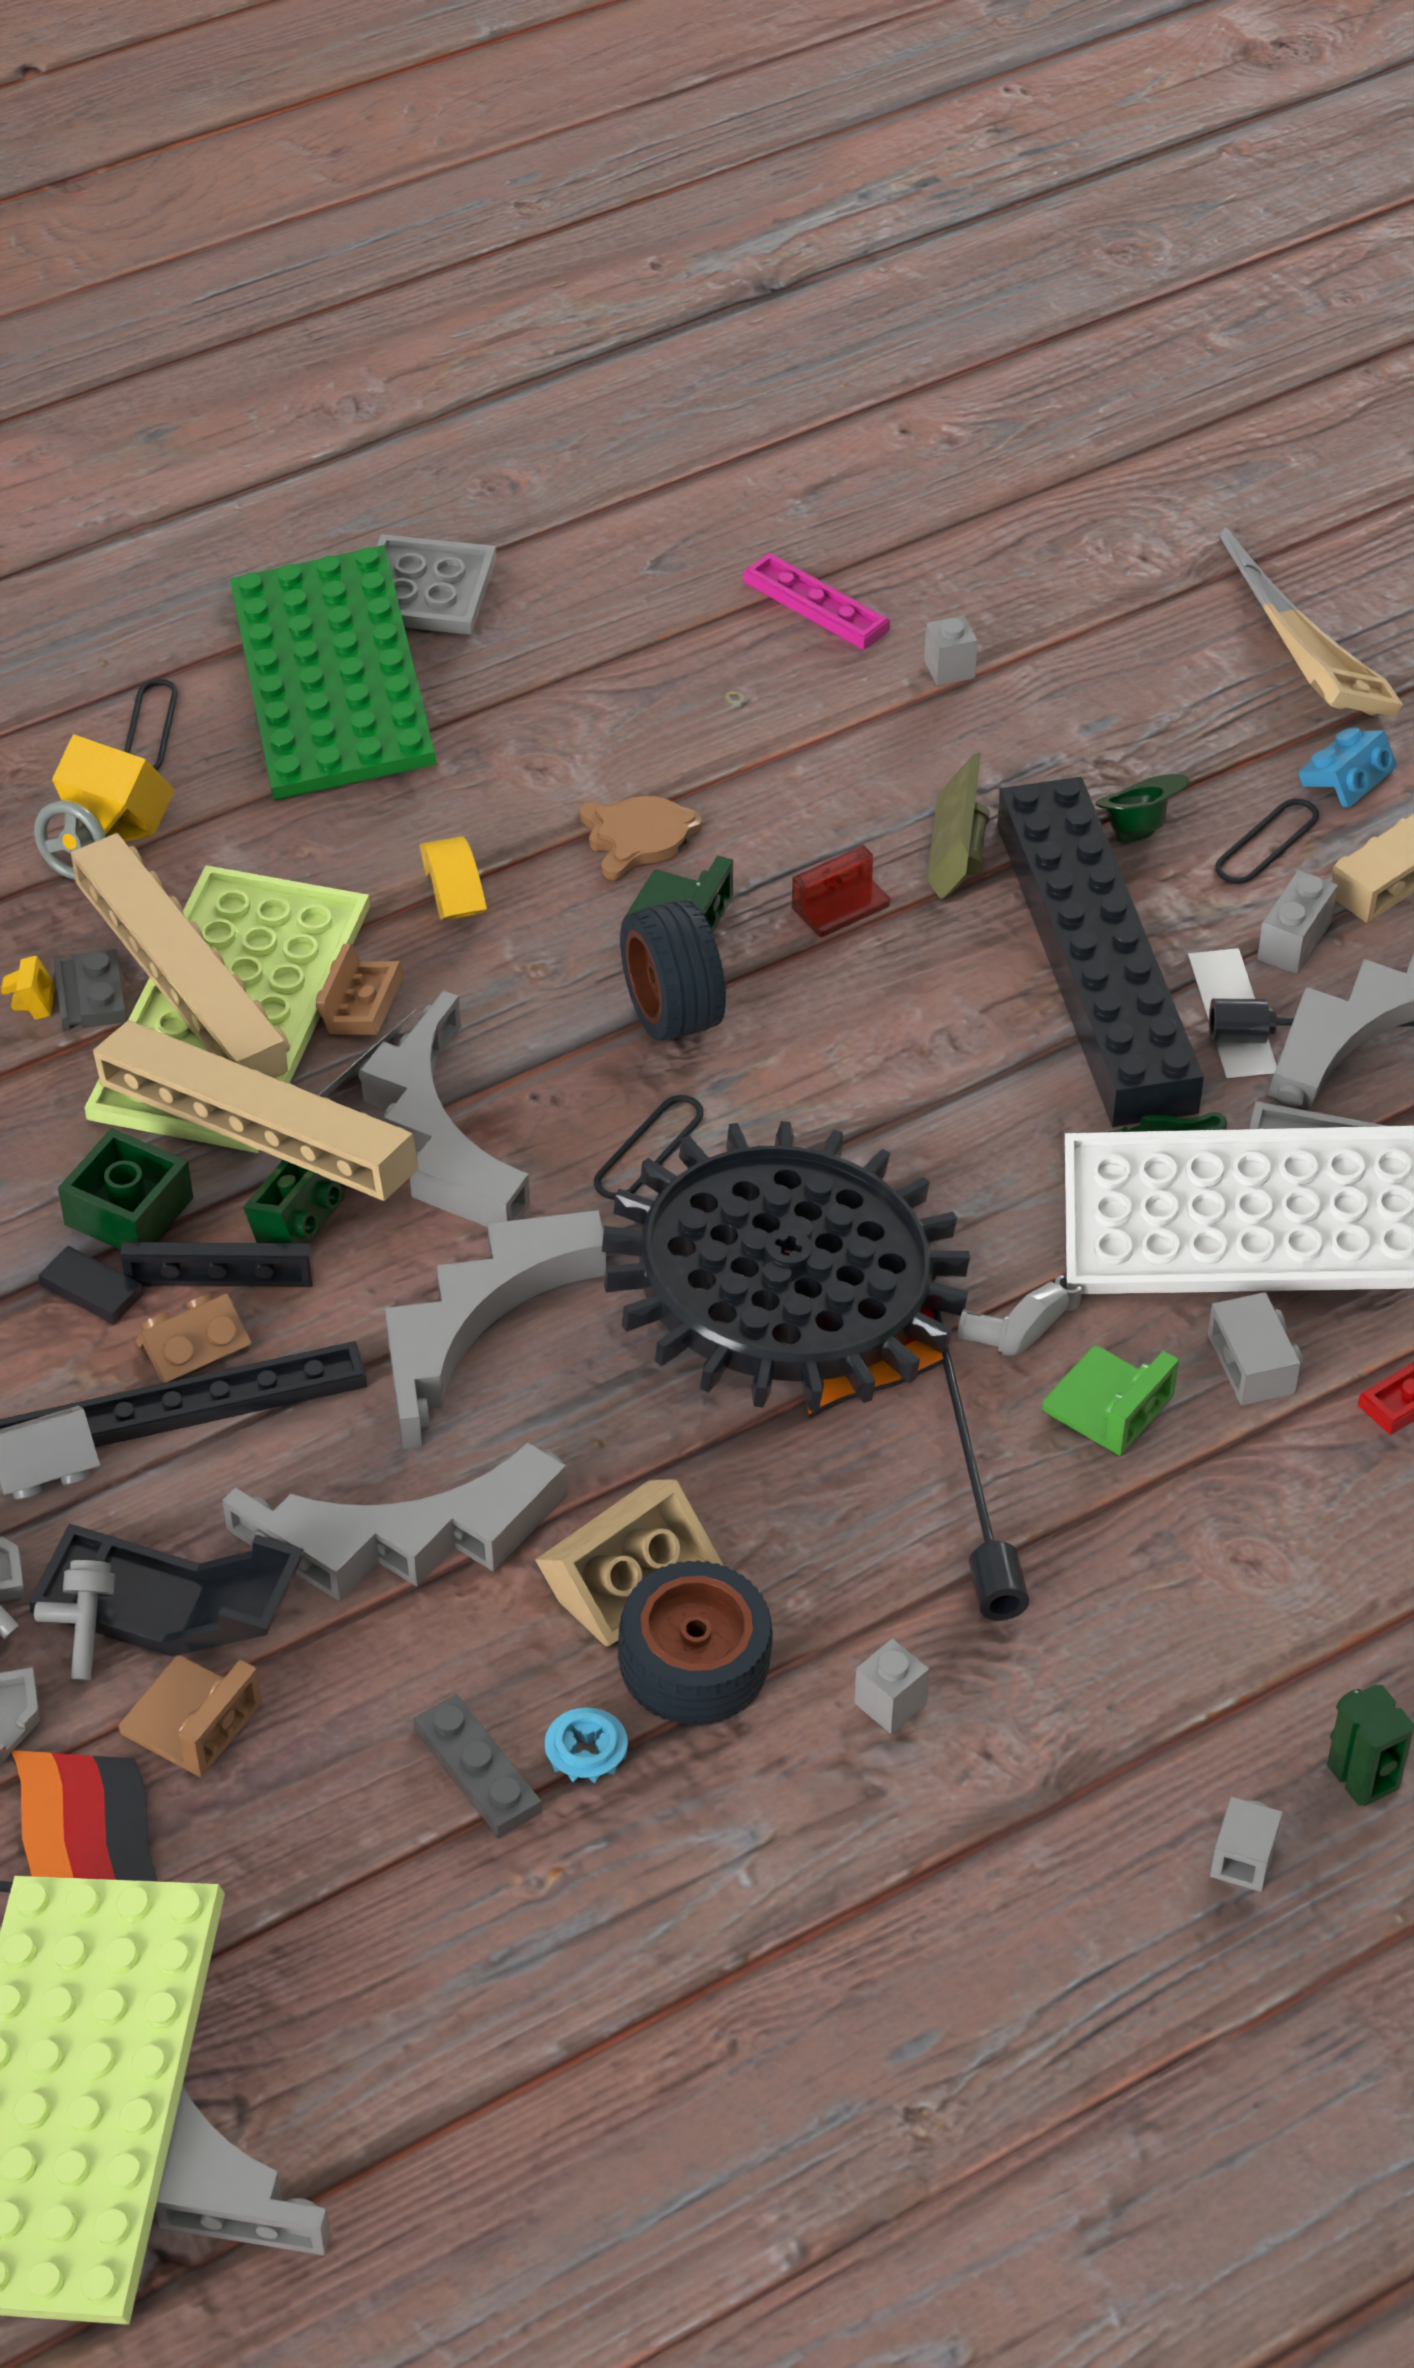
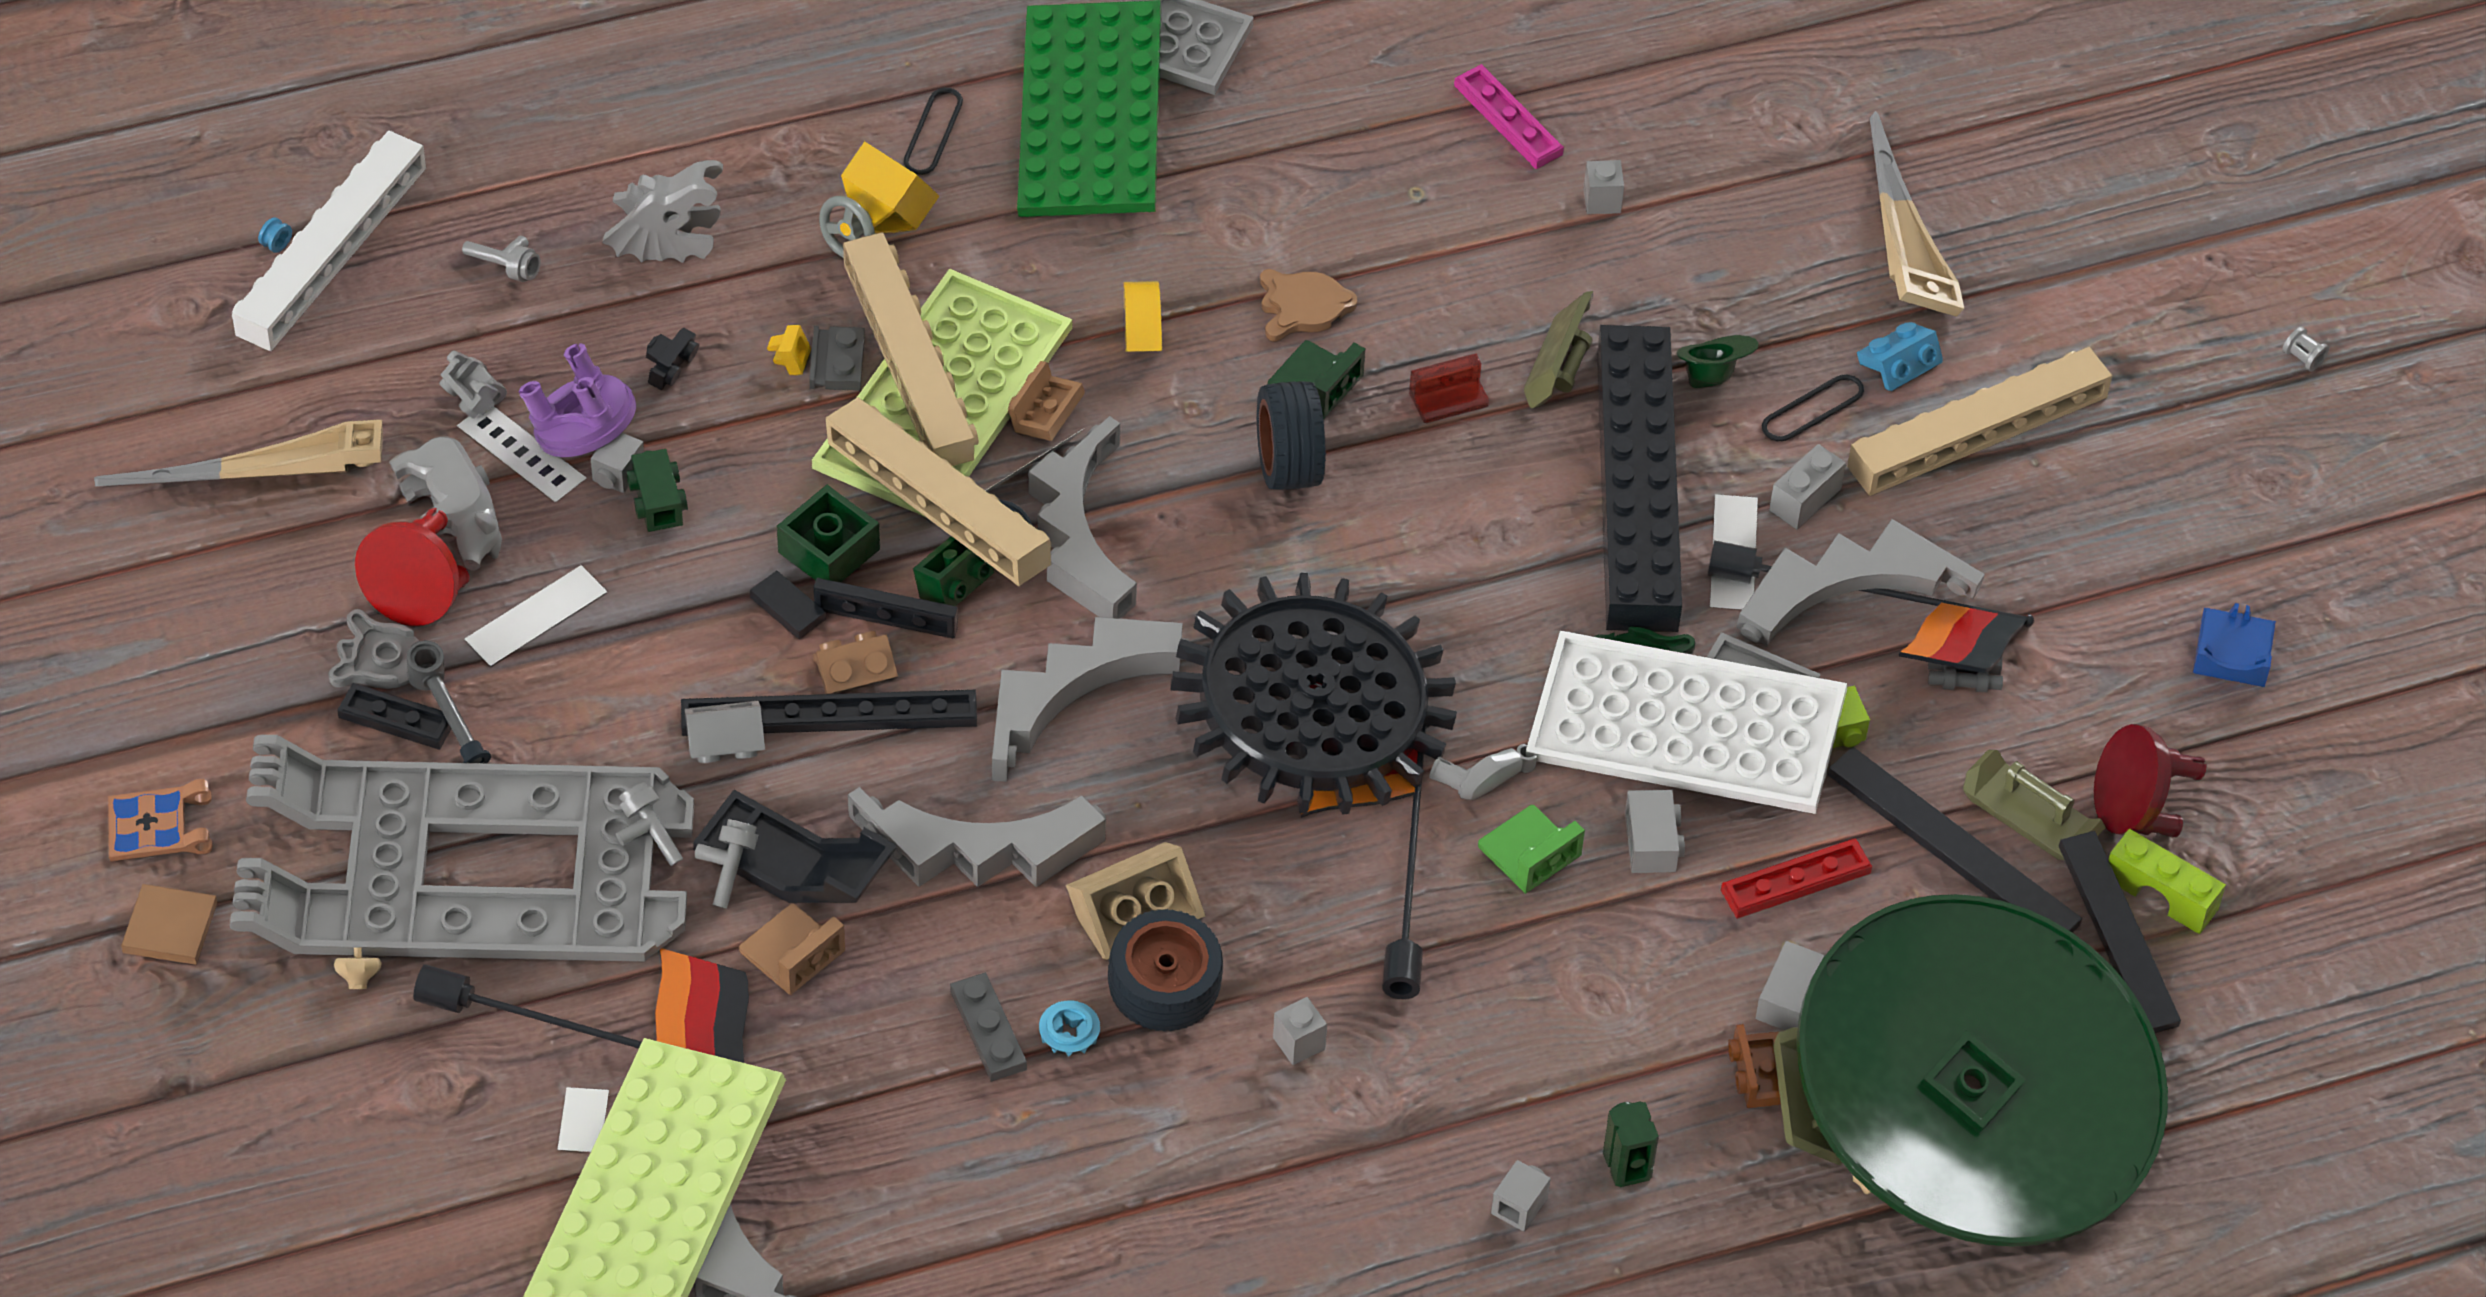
camera: 10 degrees right, 5 degrees up
(678, 1098) = (1232, 564): black piece -> none

